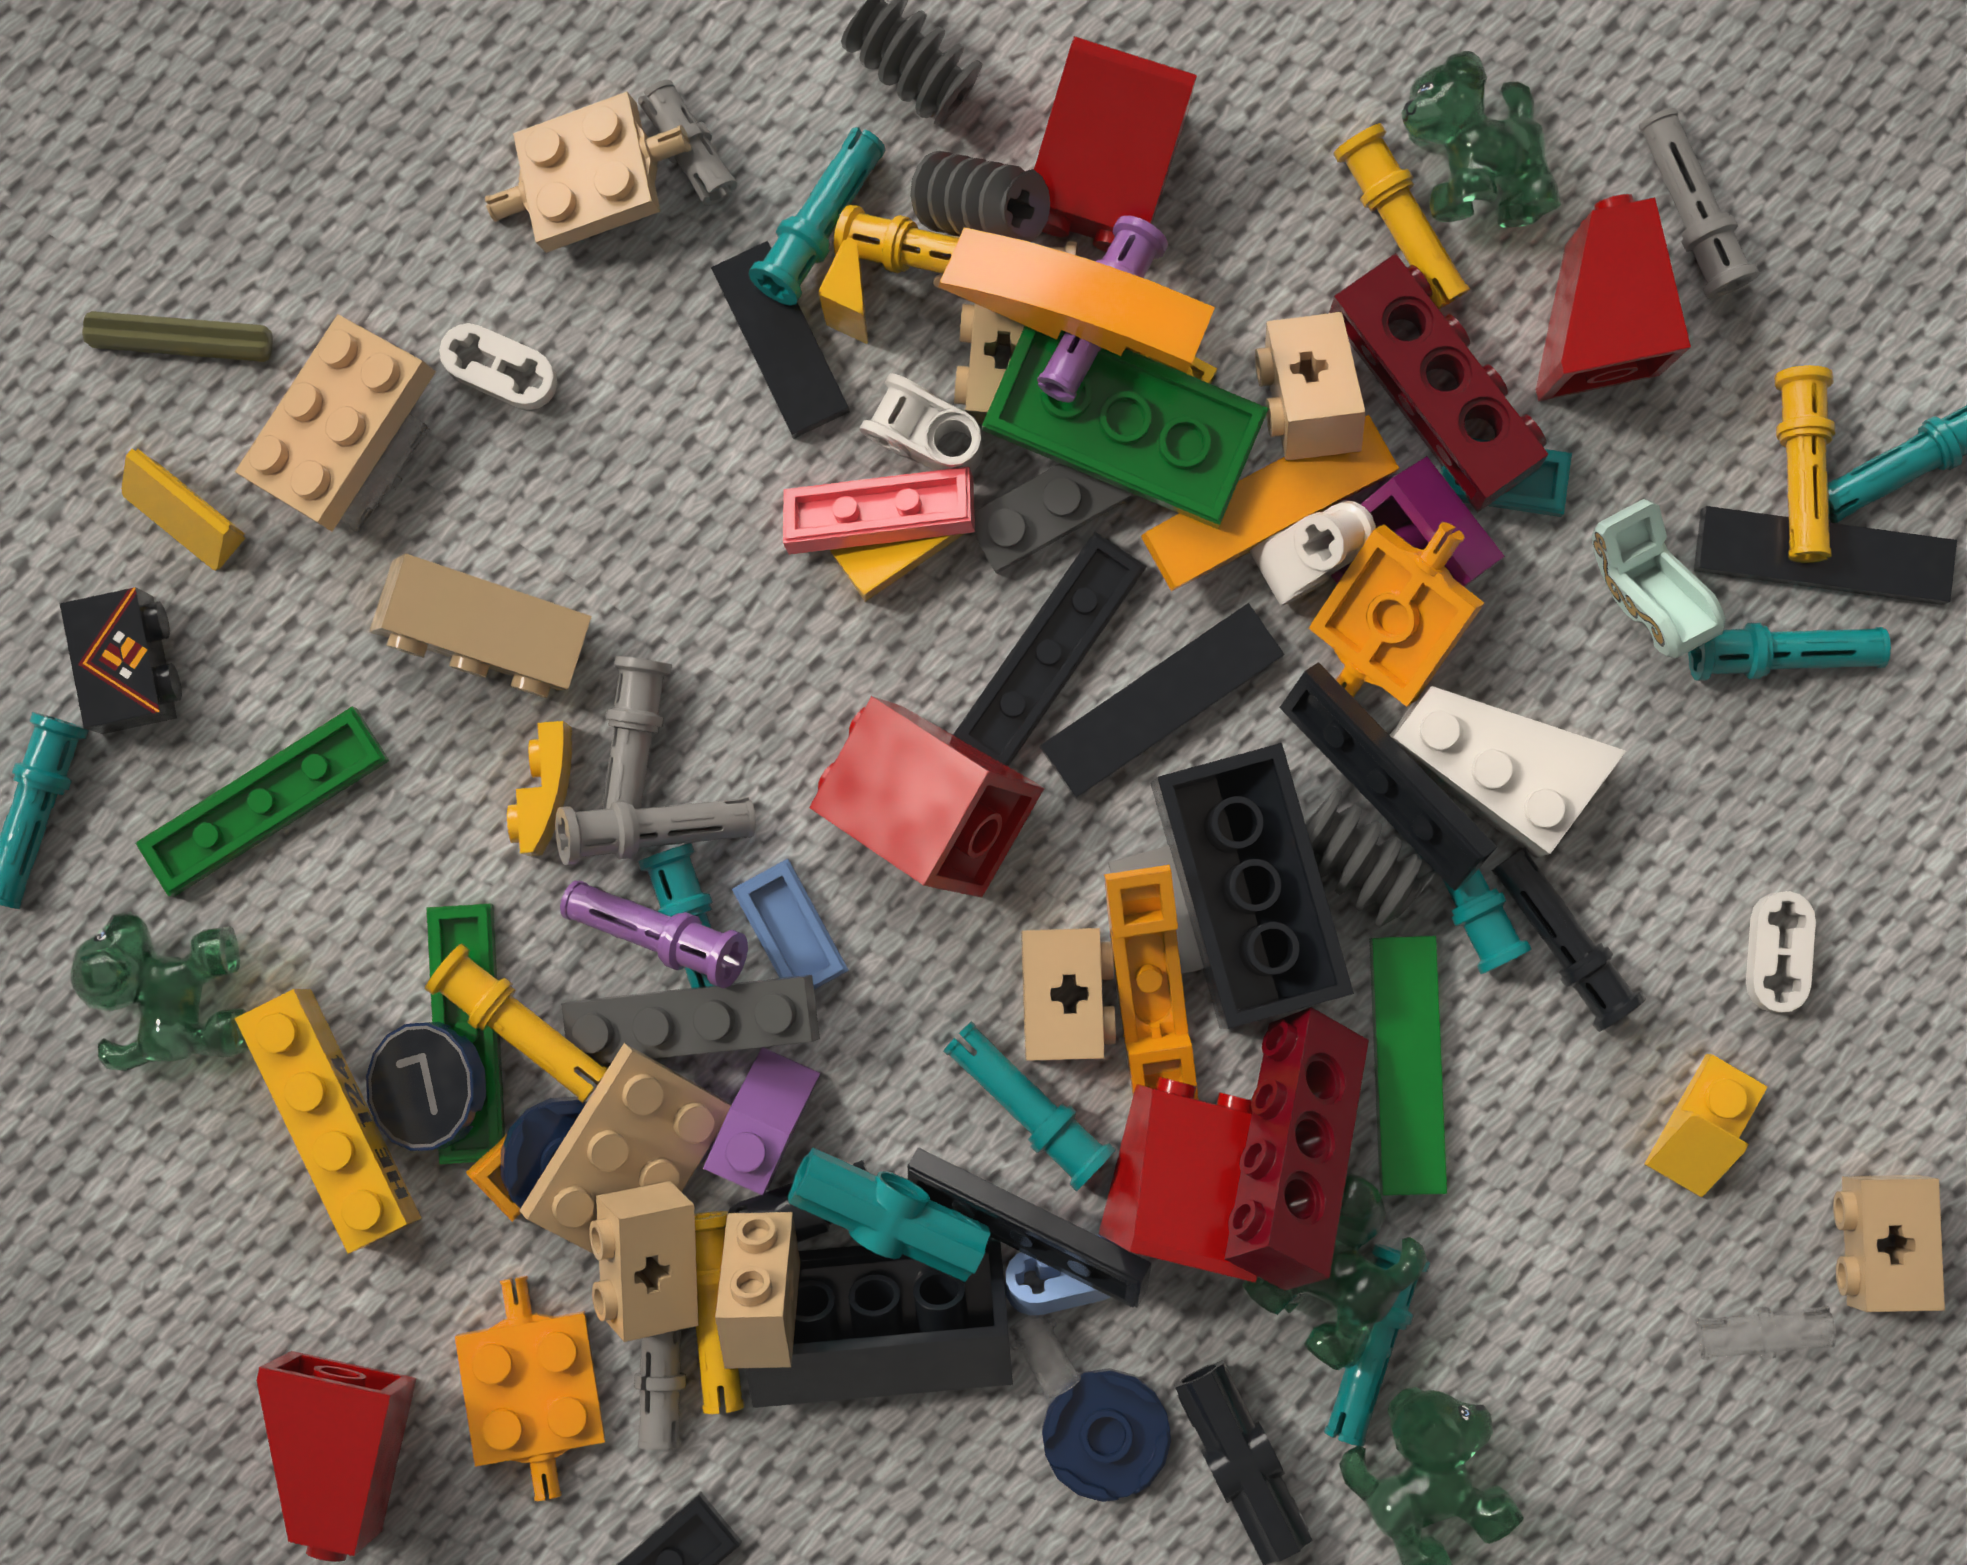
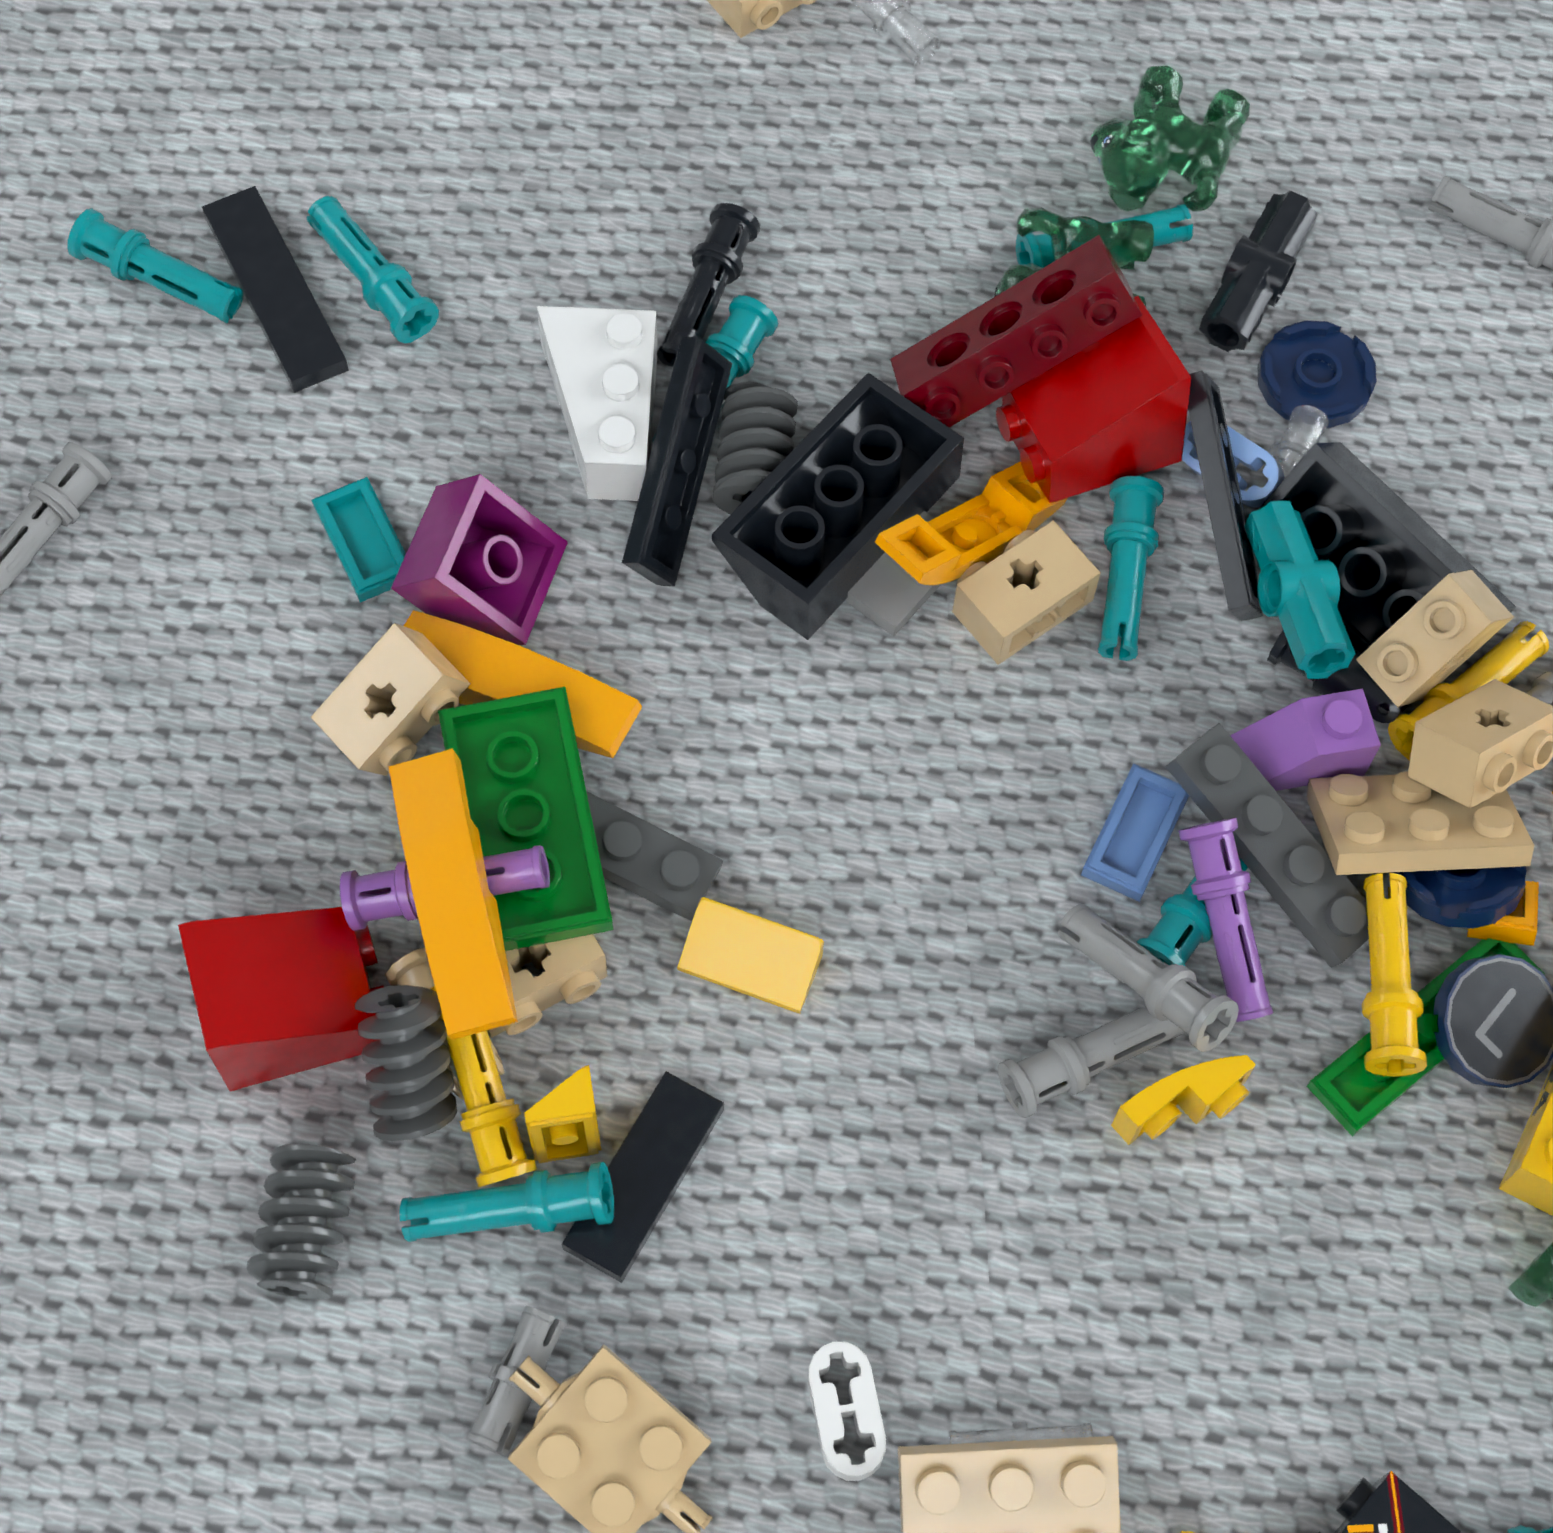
camera: 125 degrees left, 20 degrees down
(262, 802) = (1385, 1343): green tile -> none
(479, 625) = (1096, 1251): tan wedge -> none
(878, 510) = (740, 980): coral tile -> none
(915, 420) = (640, 1001): white piece -> none
(924, 799) = (957, 785): slope -> none
(1050, 650) = (759, 781): black tile -> none
(1161, 700) = (735, 672): black tile -> none
(1312, 549) = (530, 615): white piece -> none
(1388, 191) = (173, 759): yellow pin -> none
(1397, 613) = (542, 522): light orange plate -> none
(1408, 1065) = (838, 362): green tile -> none
(1438, 416) = (340, 529): dark red brick -> none
(1449, 111) = (90, 687): clear green animal -> none
(1613, 303) = (169, 522): red slope -> none
(1654, 584) = (385, 367): light aqua animal -> none
(1707, 1126) = (779, 130): yellow slope -> none
(1796, 951) = (607, 153): white beam -> none
(1805, 434) = (185, 342): yellow pin -> none

